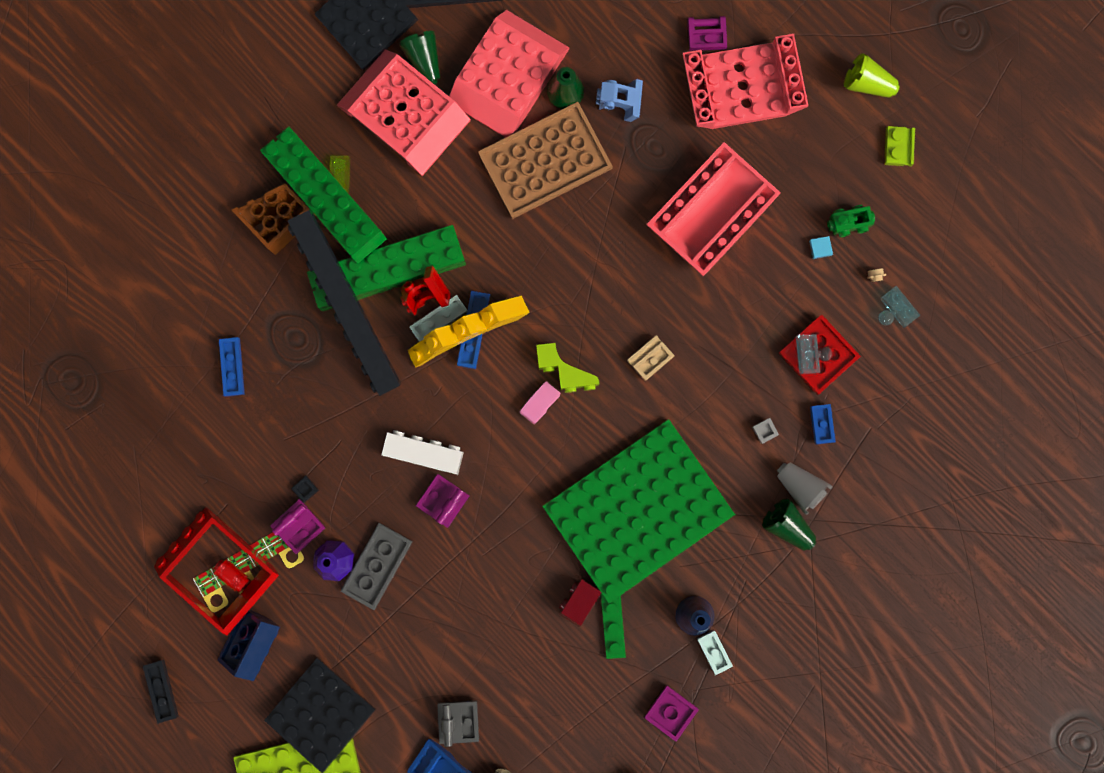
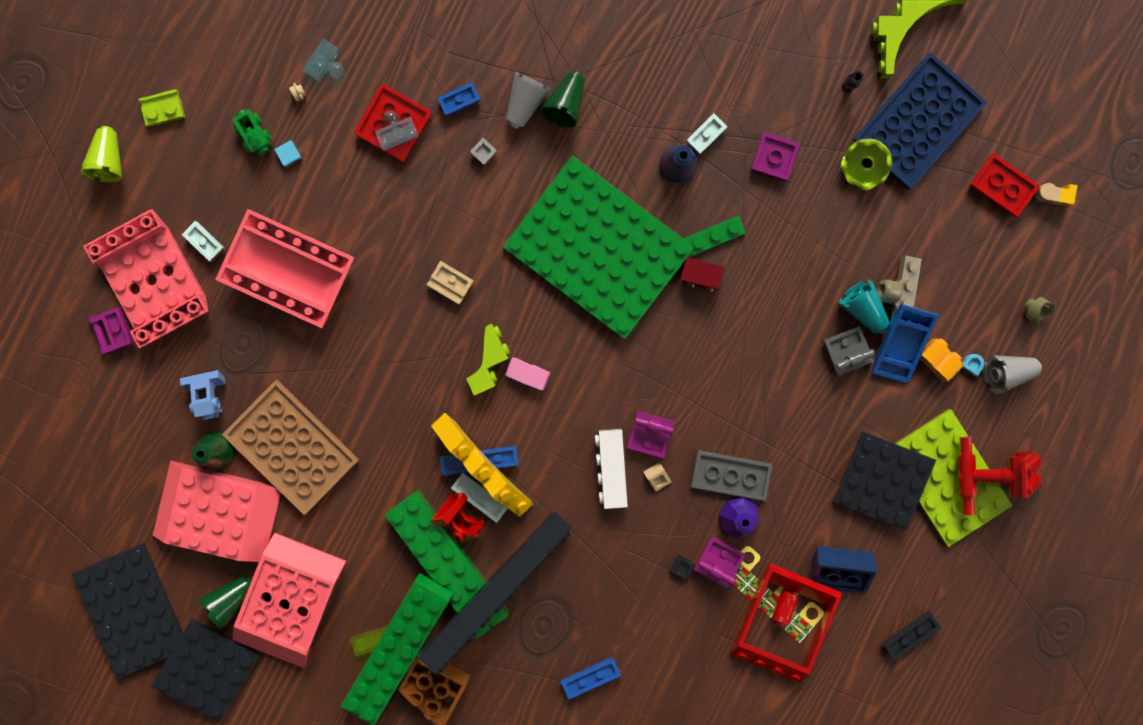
camera: 110 degrees left, 5 degrees up
(399, 494) = (657, 477): none -> tan slope
(495, 754) = (865, 305): none -> teal cone
(763, 143) = (203, 241): none -> light aqua plate

